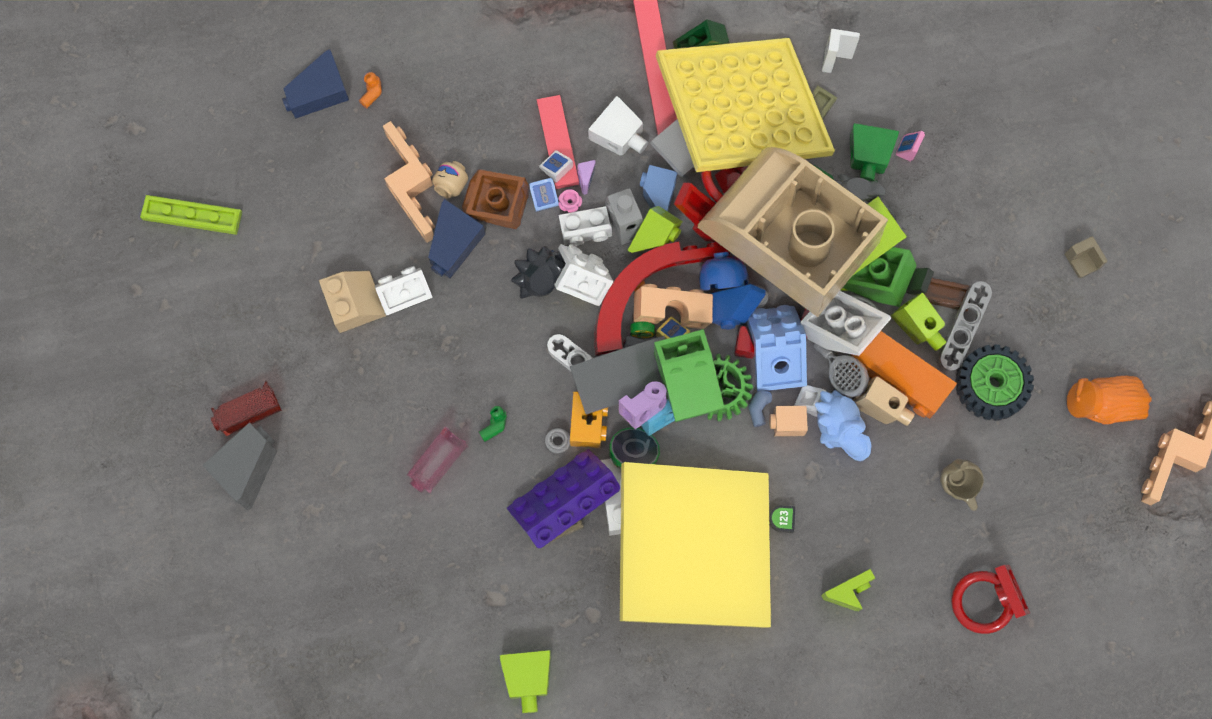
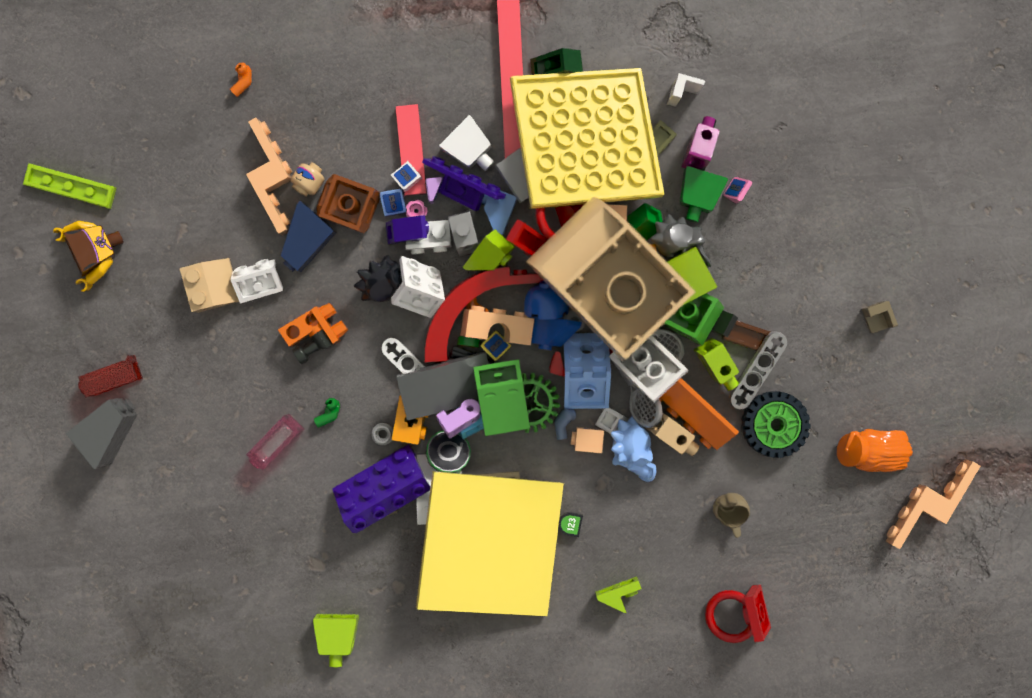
camera: 10 degrees right, 15 degrees up
(218, 274) = (90, 249): none -> torso
(315, 87) = (190, 72): dark blue slope -> none
(474, 330) = (313, 324): none -> orange hips
(562, 216) = (407, 229): none -> dark purple slope
(616, 169) = (461, 187): none -> dark purple bracket
(865, 97) = (701, 144): none -> magenta torso

